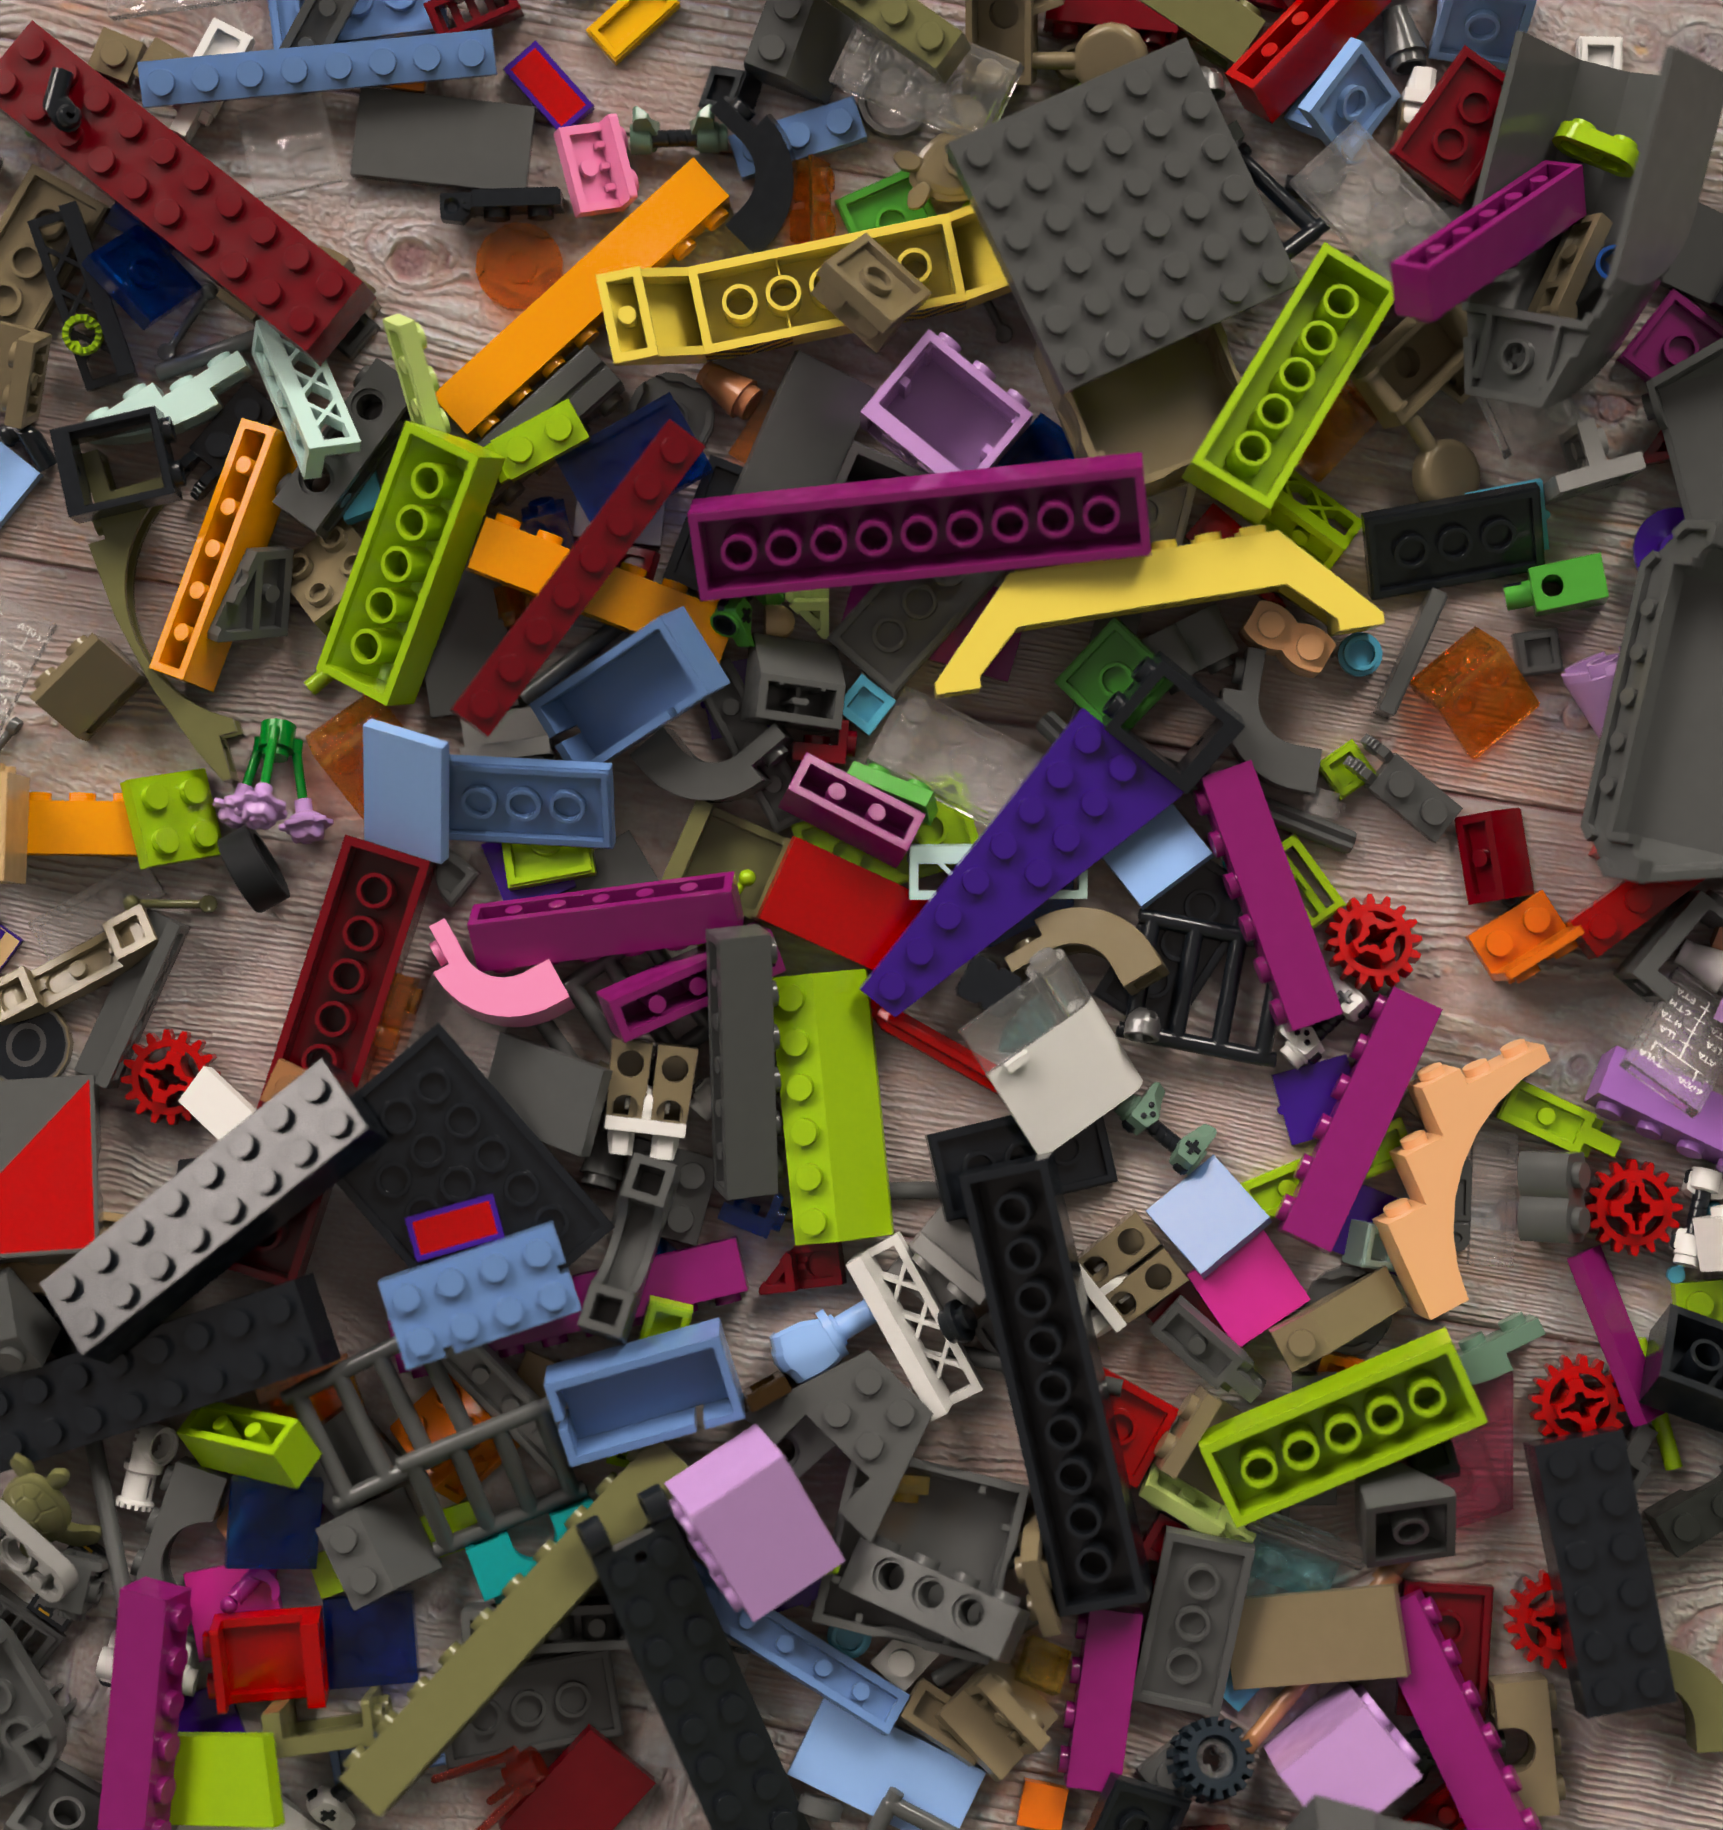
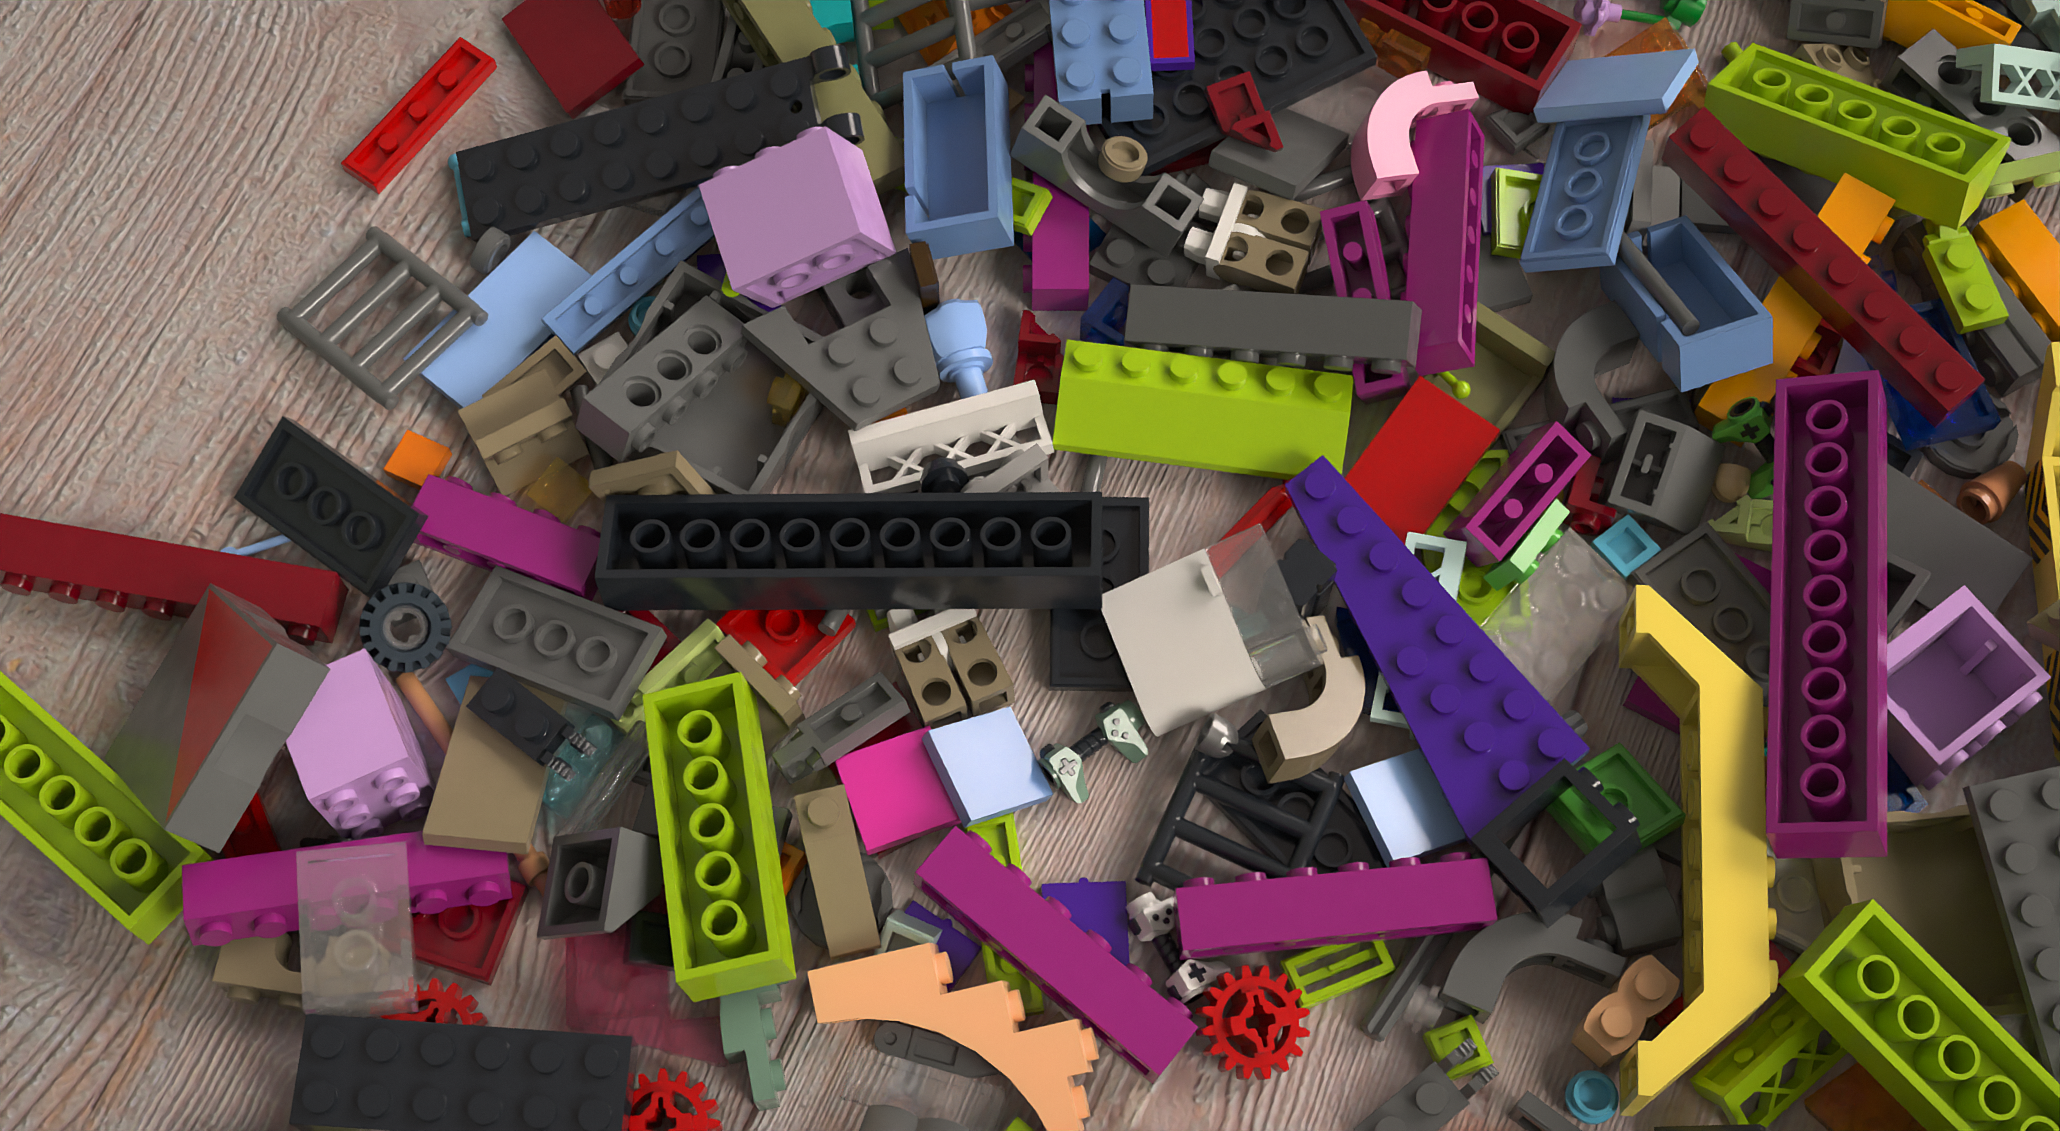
camera: 100 degrees right, 20 degrees down
(532, 1136) = (1241, 112): none -> dark red slope
(608, 1237) = (1122, 159): none -> dark tan tile
(629, 722) = (1657, 286): none -> dark grey bar
(1279, 1619) = (527, 722): none -> black hinge
(1506, 1702) = (356, 931): none -> clear slope

